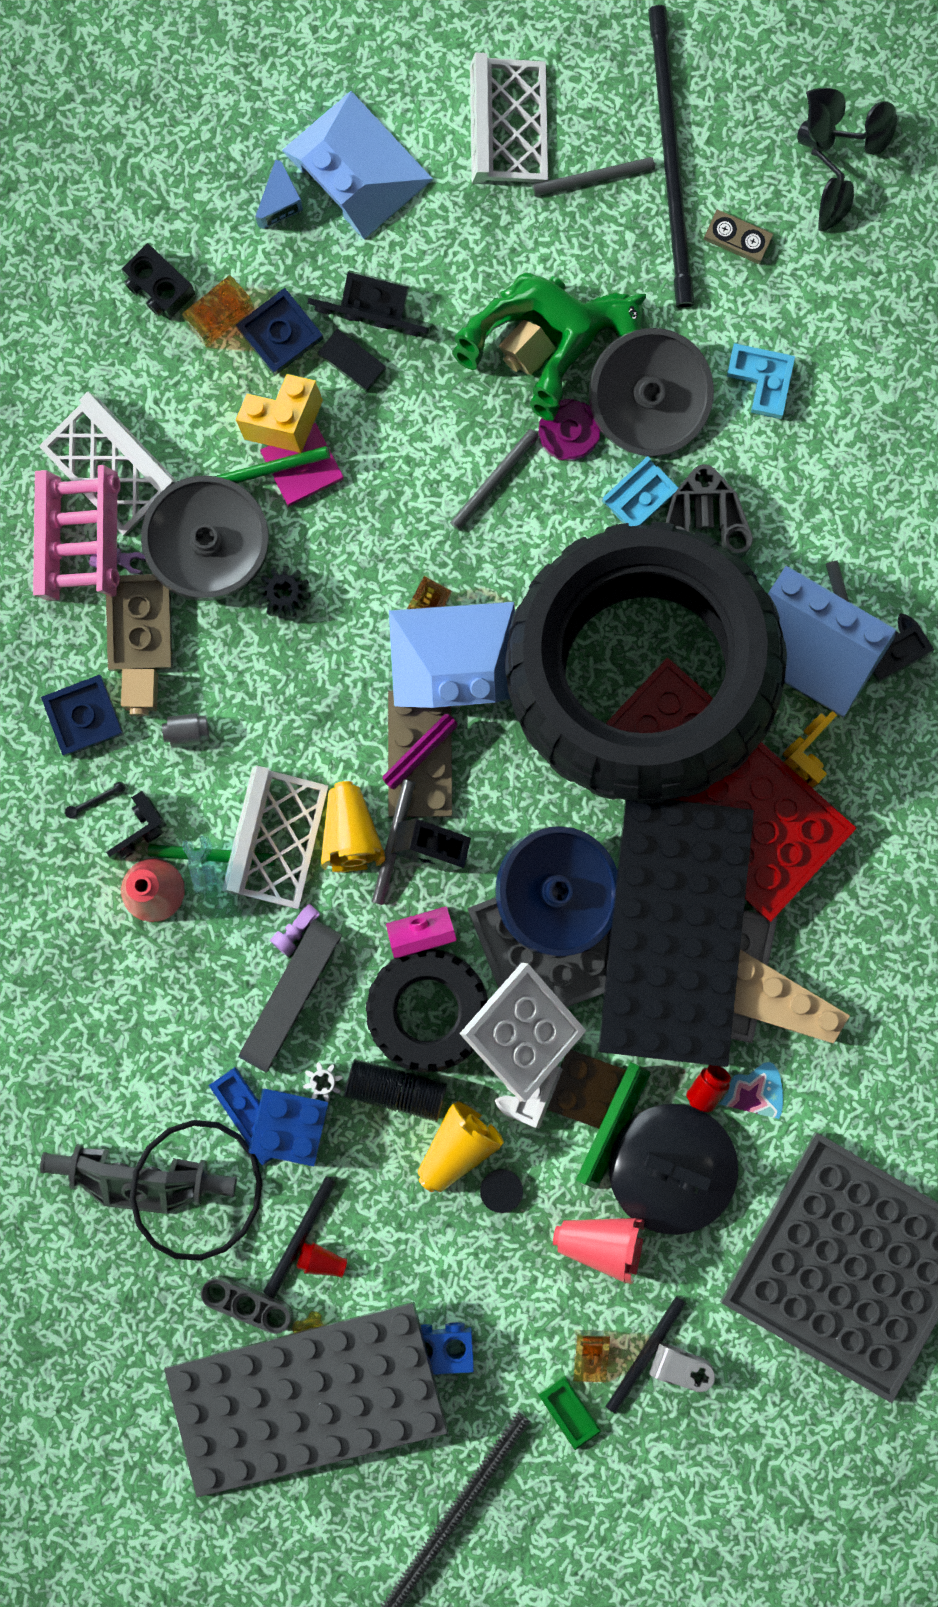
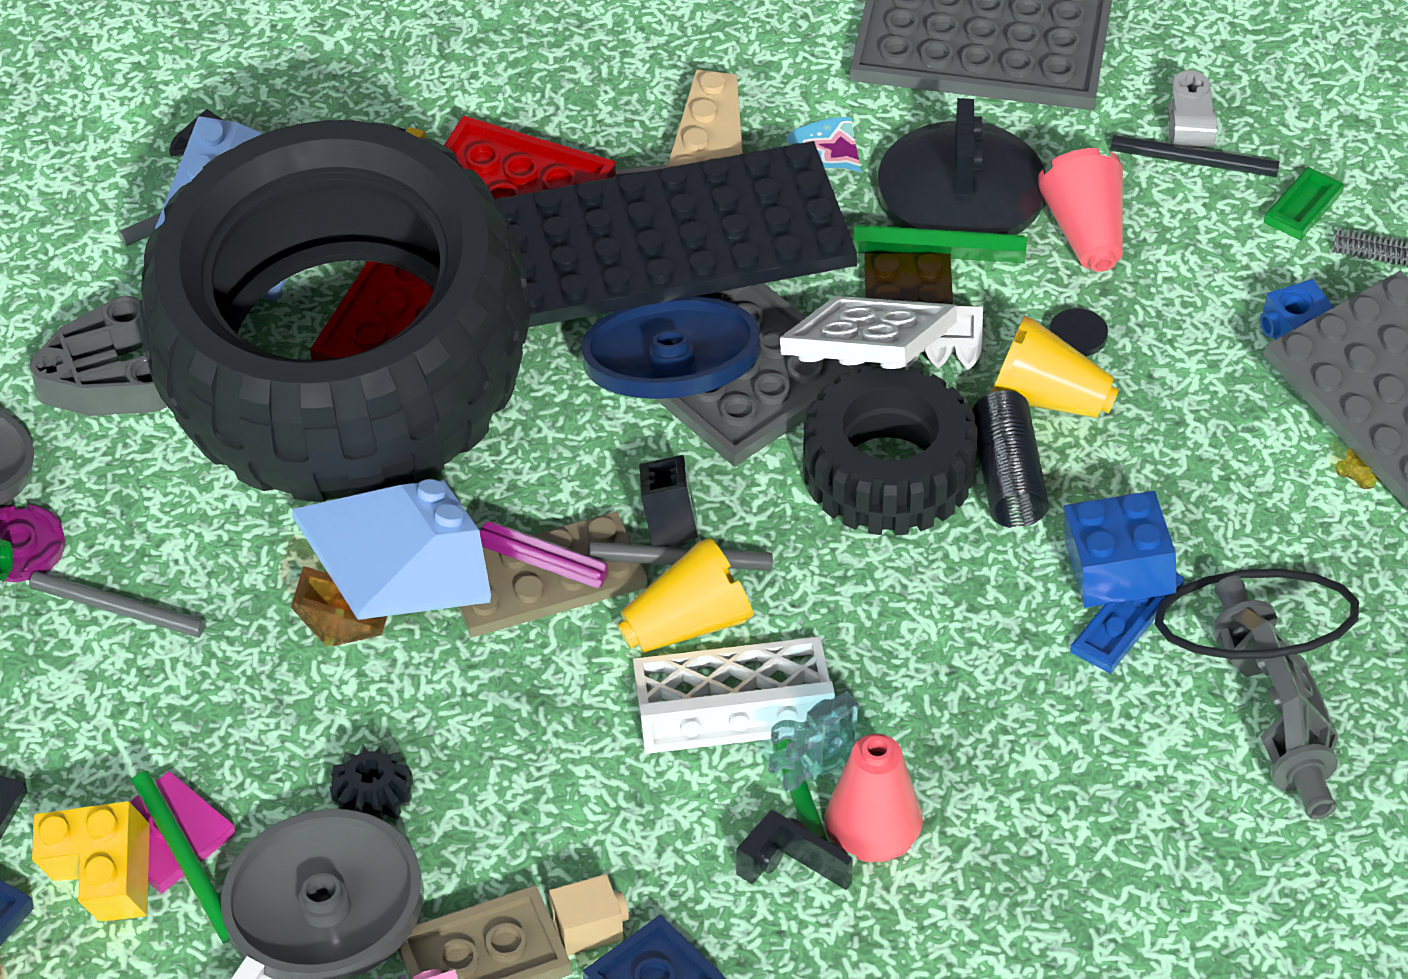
camera: 110 degrees left, 35 degrees down
(72, 812) = (804, 955): black hinge -> none
(185, 730) = (623, 841): flat silver brick -> none
(230, 1304) = (1370, 533): dark grey beam -> none
(285, 941) = (835, 628): lavender piece -> none
(289, 995) = (944, 607): dark grey beam -> none
(299, 1237) = (1253, 514): black bar -> none
(314, 1084) = (1039, 539): white gear -> none
(320, 1261) = (1271, 481): red cone -> none
(420, 932) = (789, 481): dark pink plate -> none
(591, 1355) = (1220, 195): clear orange slope -> none
(640, 493) = (91, 439): medium azure plate -> none
(708, 1088) = (849, 169): red brick -> none

